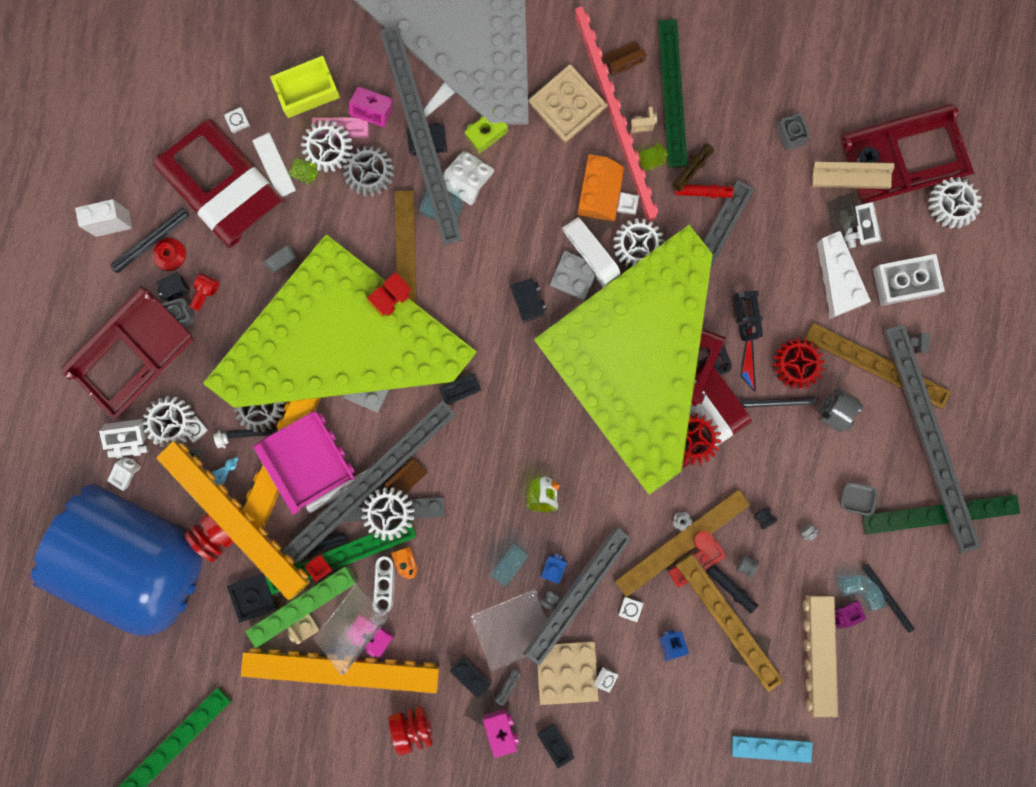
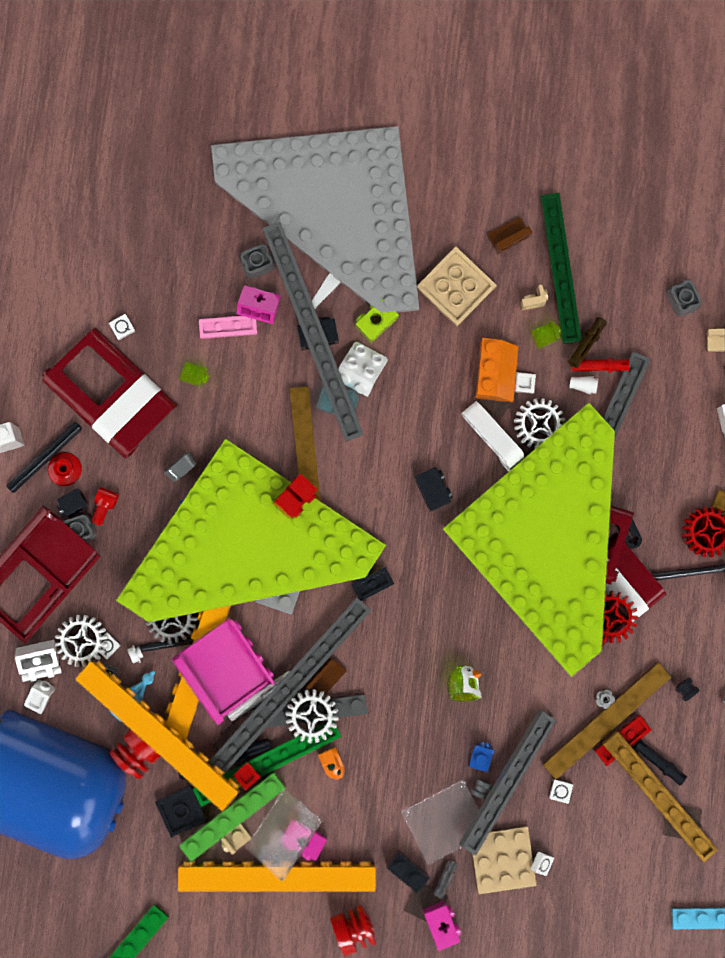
camera: 20 degrees left, 0 degrees up
(273, 165) = (163, 369): white sticker -> none
(305, 87) = (190, 289): neon yellow piece -> none
(329, 137) = (212, 364): white gear -> none
(356, 162) = (265, 360): light grey gear -> none
(374, 65) = (257, 261): none -> dark grey piece
(388, 575) = (313, 777): white beam -> none
(509, 565) = (437, 757): clear light blue brick -> none
(555, 745) = (497, 933): black plate -> none
(573, 276) = (476, 461): light grey plate -> none
(619, 122) = (509, 301): coral plate -> none
(679, 645) = (611, 824): blue brick -> none
(687, 208) = (585, 384): none -> white cone
(703, 540) = (628, 717): tile -> none
(747, 565) = (673, 738): dark grey wheel -> none
(748, 365) = (658, 540): sticker -> none
(749, 320) = (656, 493): black piece -> none

